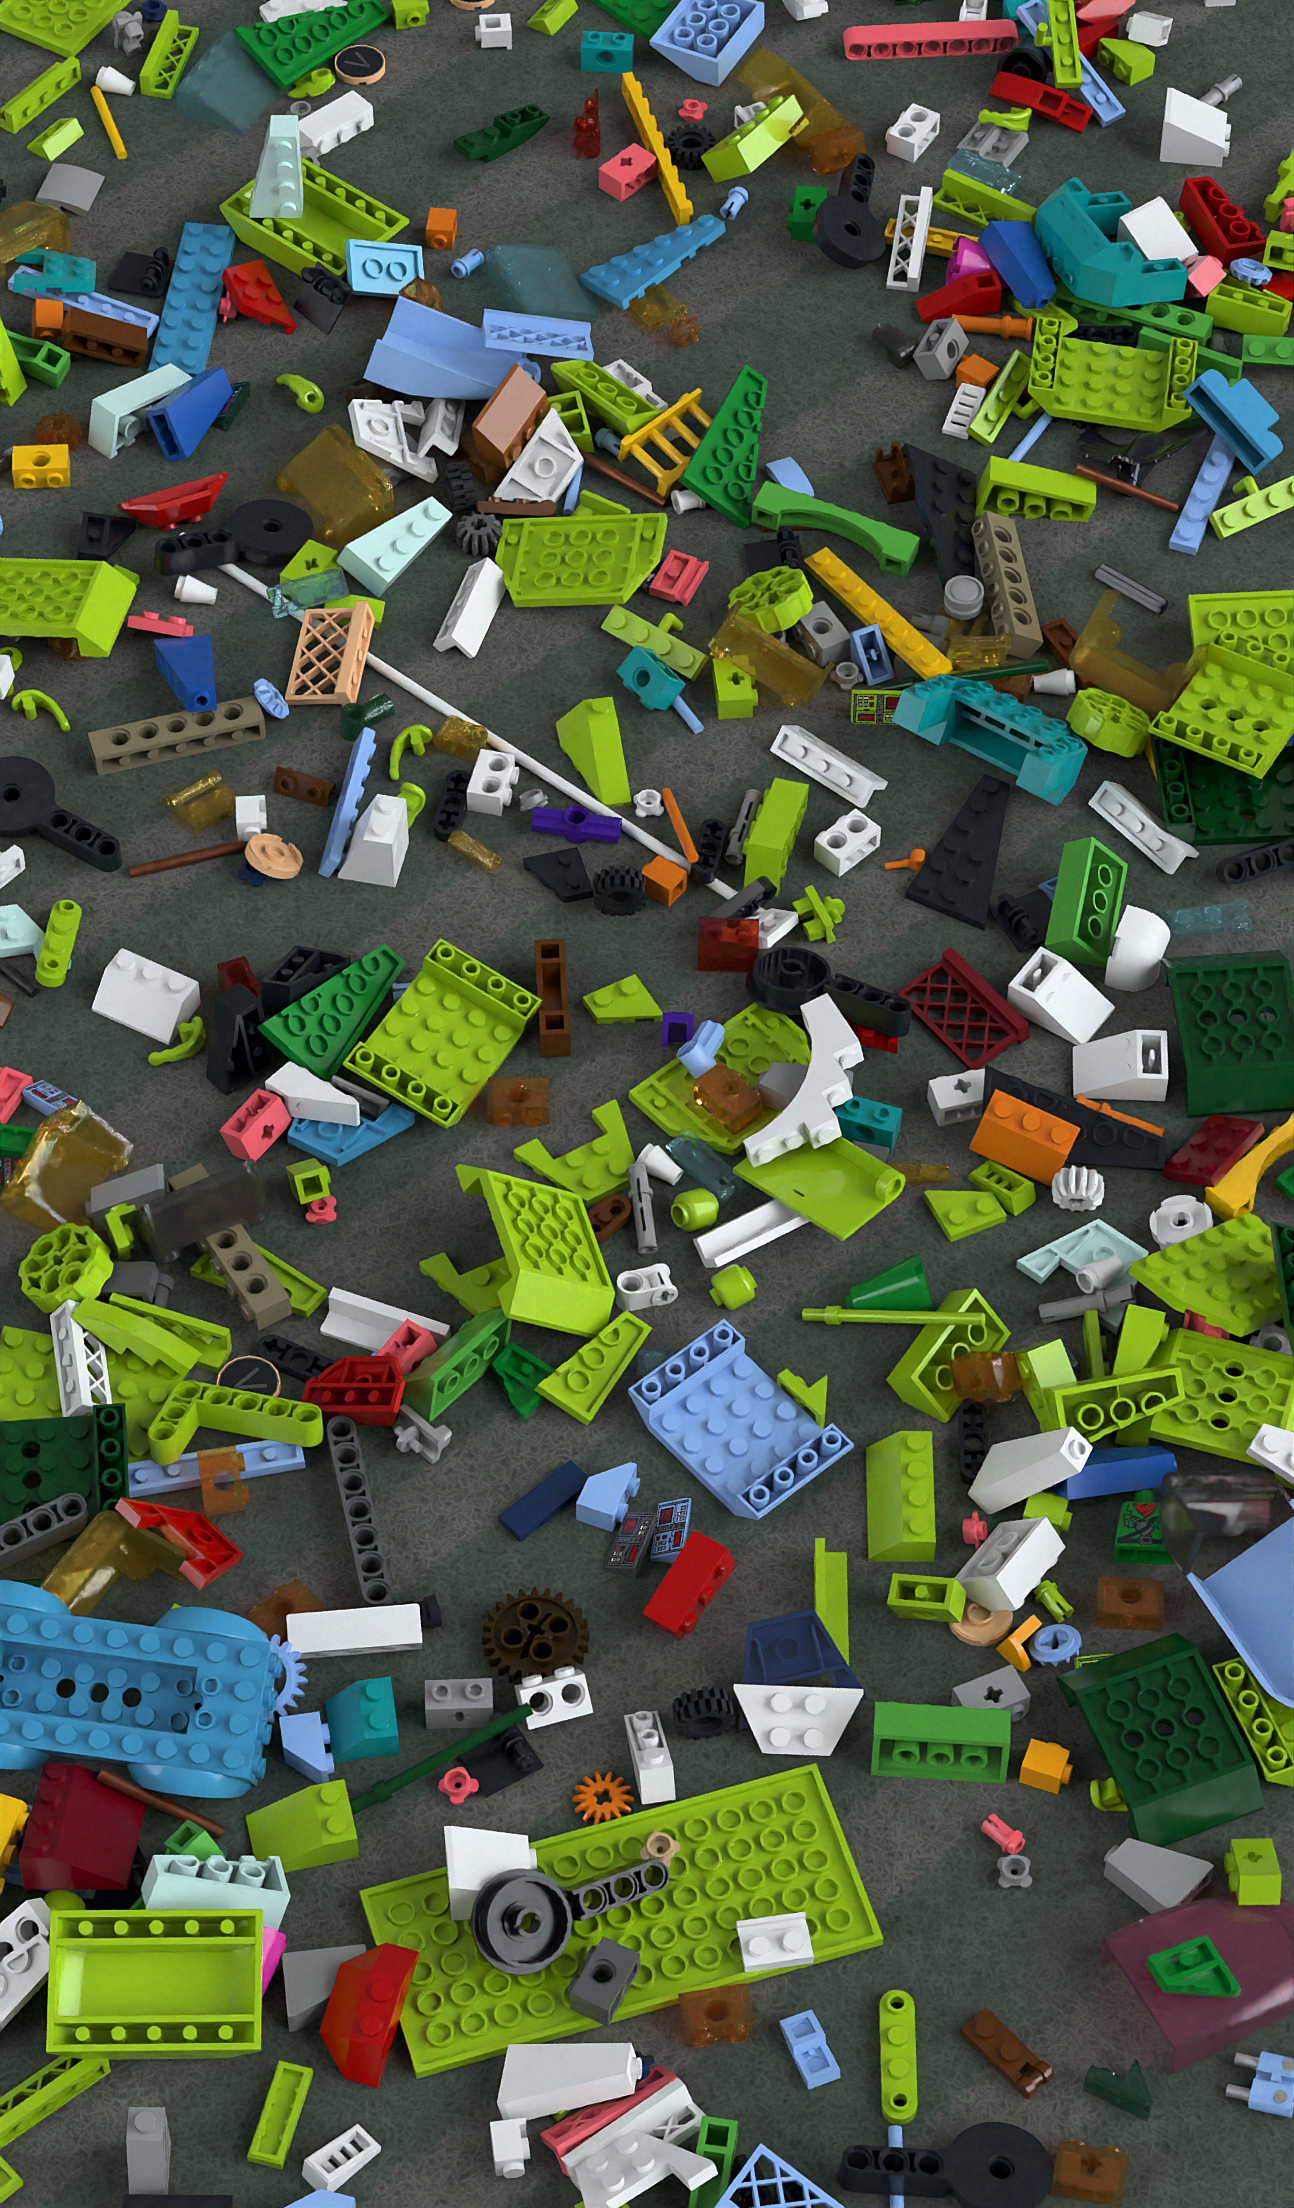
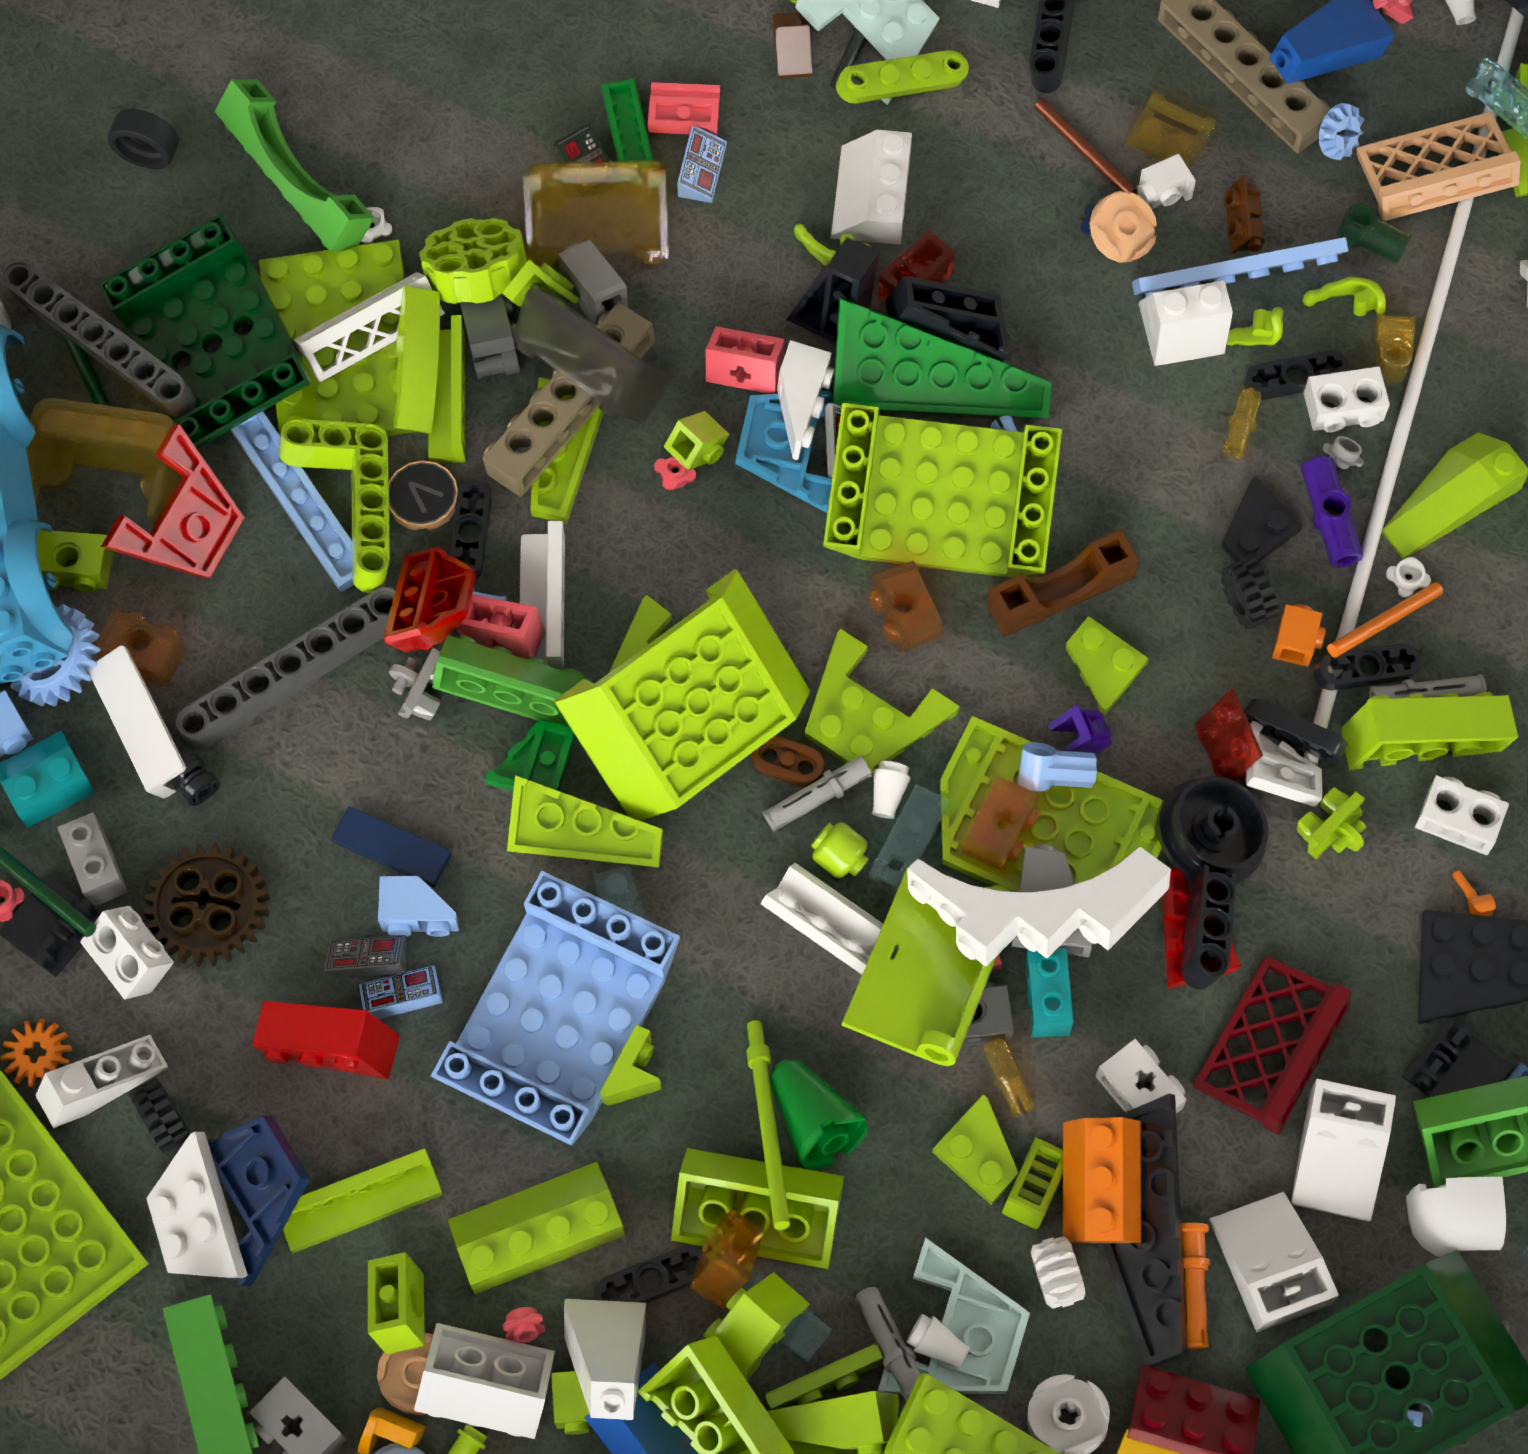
camera: 70 degrees right, 15 degrees up
(219, 1501) = (279, 497): clear orange brick -> none
(644, 1288) = (716, 843): white piece -> none
(732, 1287) = (750, 931): lime head -> none

